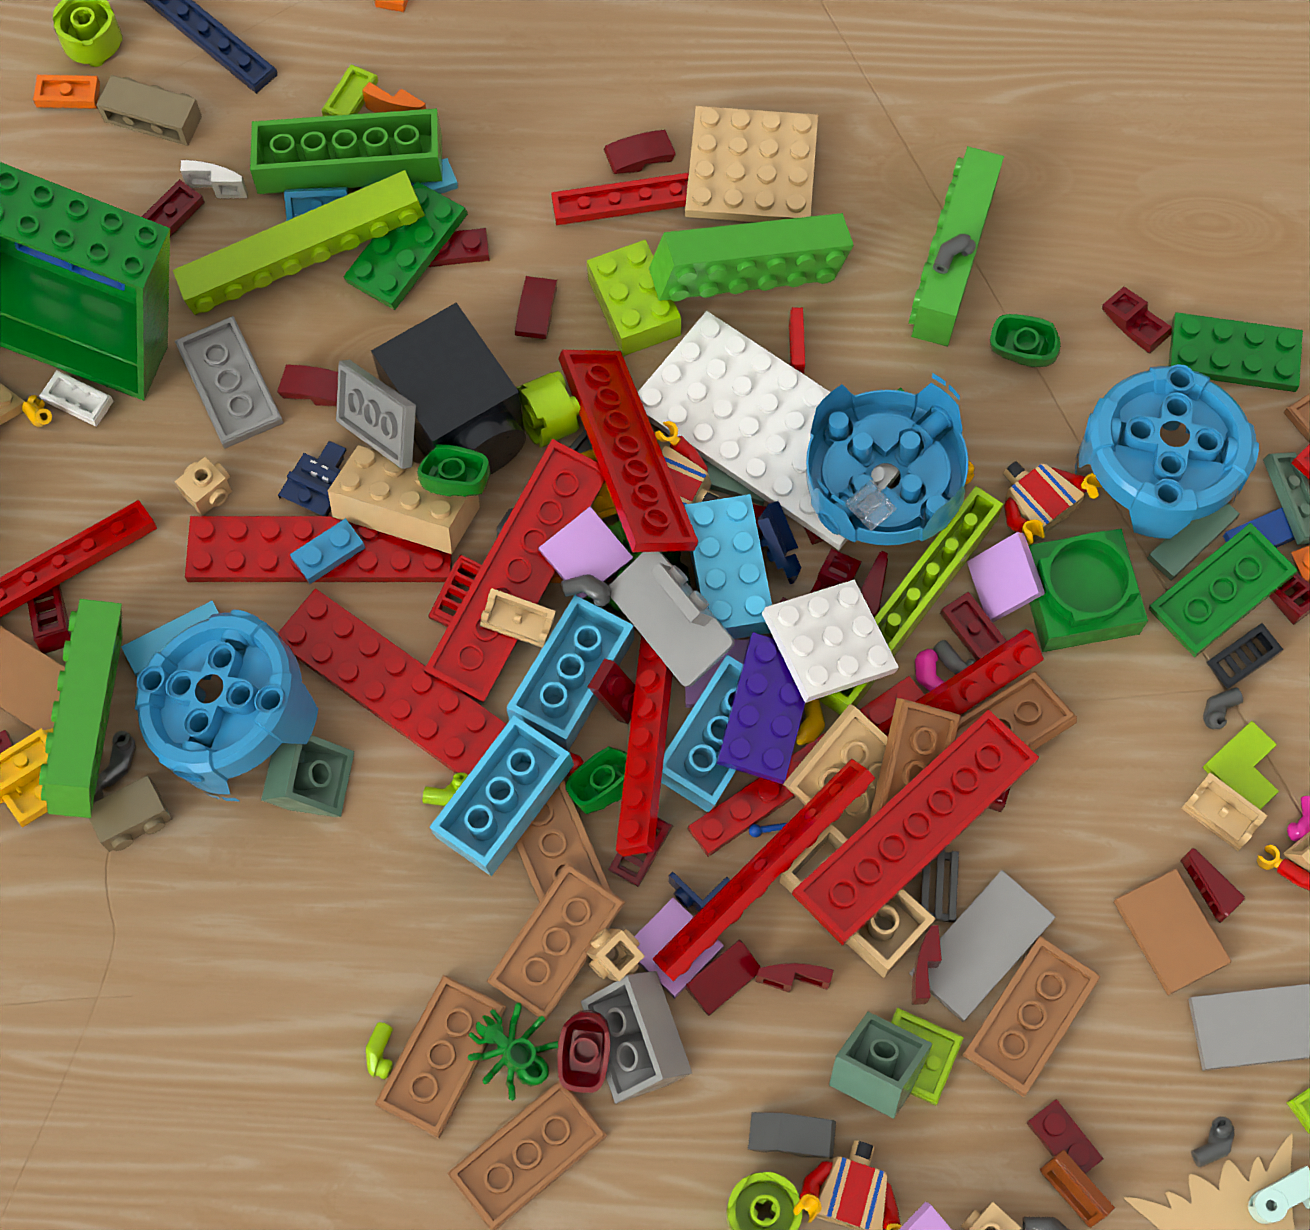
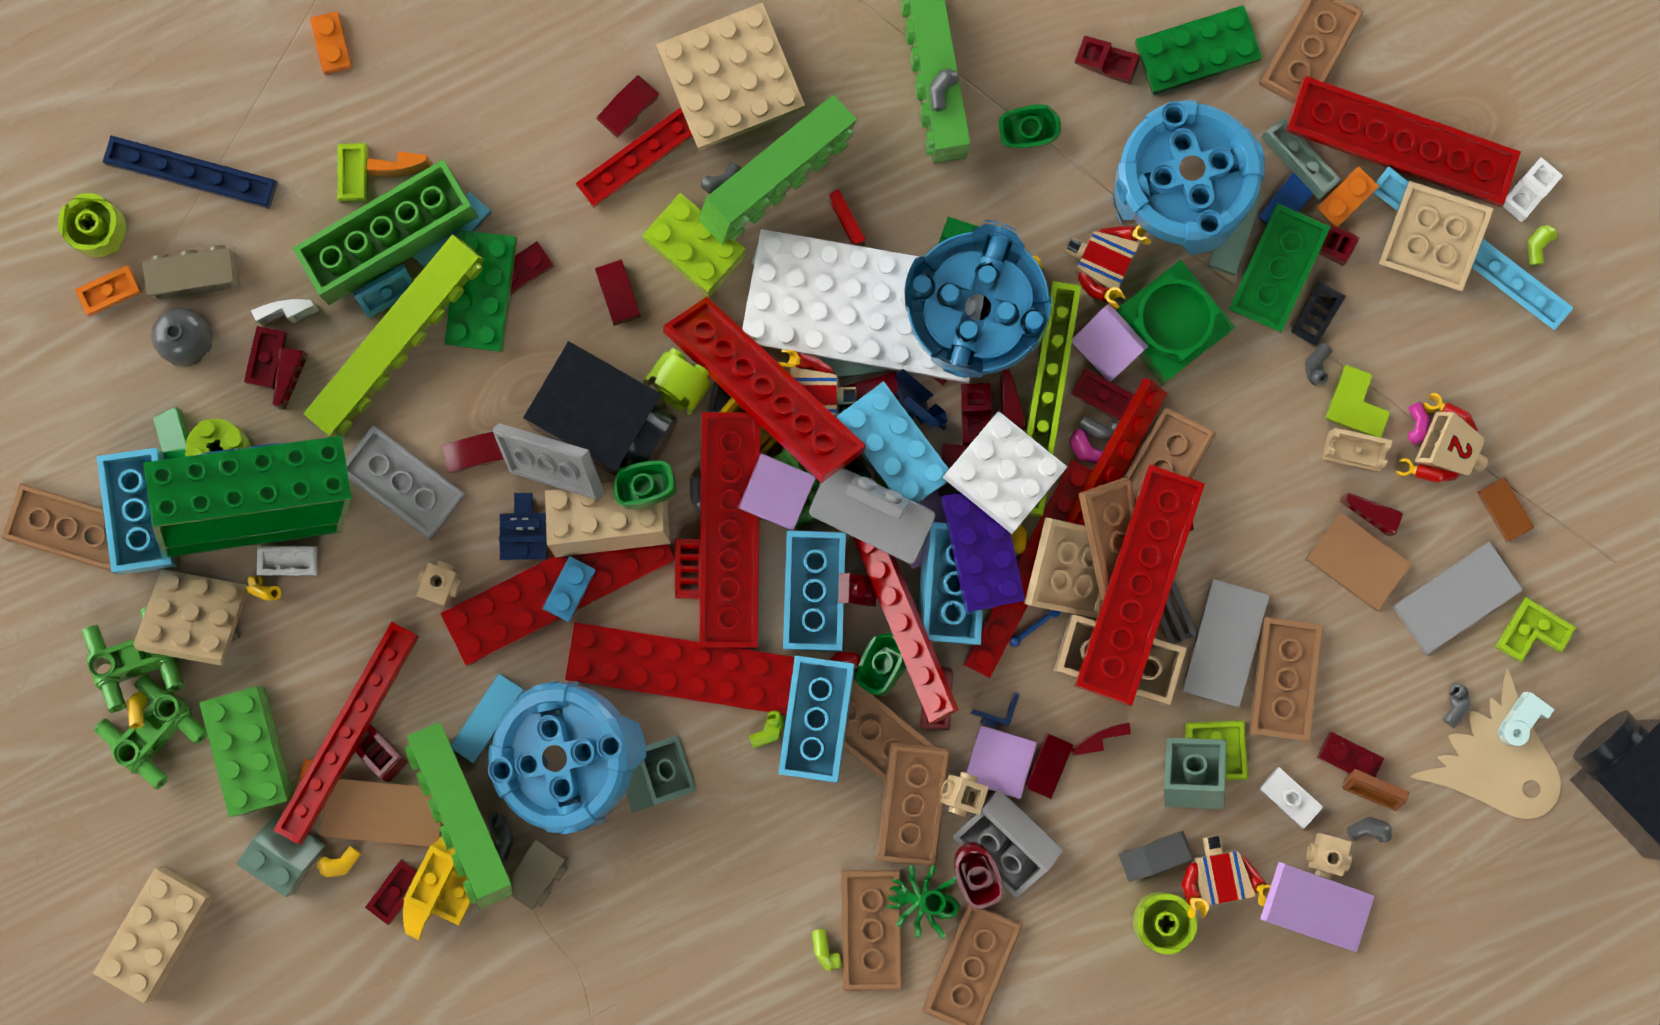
camera: 30 degrees left, 15 degrees up
(106, 159) = (182, 336): none -> dark grey cylinder
(187, 230) = (288, 372): none -> dark red slope
(517, 618) = (752, 572): tan hinge -> none
(590, 586) = (795, 518): dark grey arm -> none
(763, 869) = (1042, 675): red plate -> none
(870, 505) = (985, 348): clear brick -> none
(928, 957) = (1191, 675): dark red slope -> none
(975, 1150) = (1290, 797): none -> white plate

